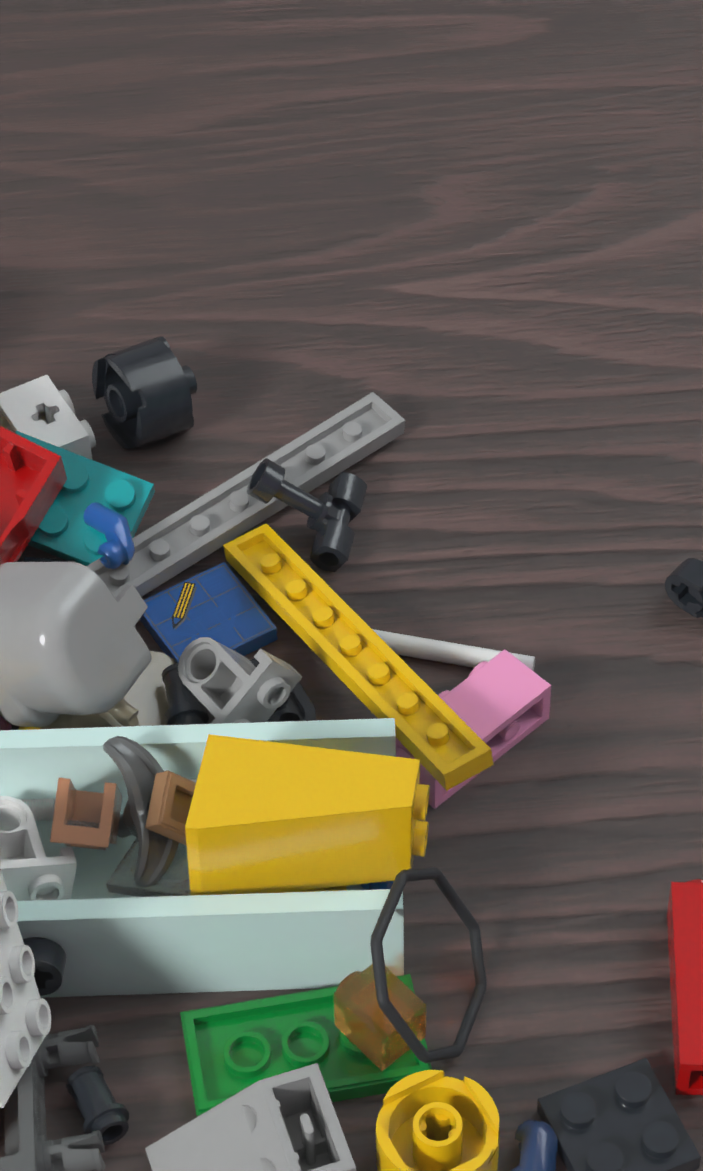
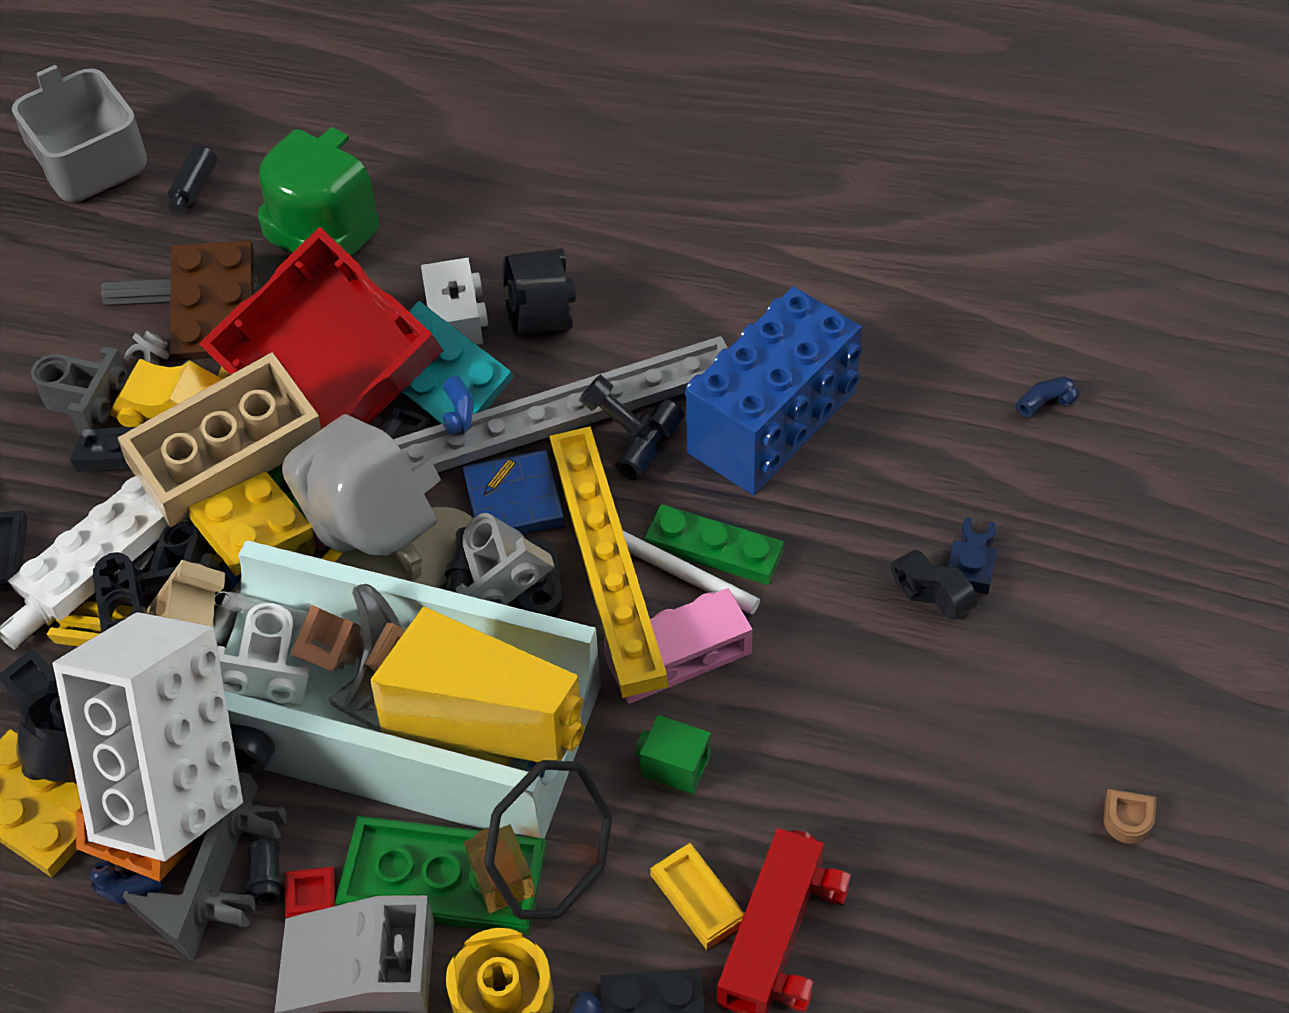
camera: 20 degrees right, 5 degrees up
(158, 1110) = (309, 890): none -> red tile
(460, 613) = (715, 544): none -> green plate
(462, 430) = (772, 389): none -> blue brick
(516, 842) = (674, 753): none -> green brick
(606, 985) = (698, 895): none -> yellow tile

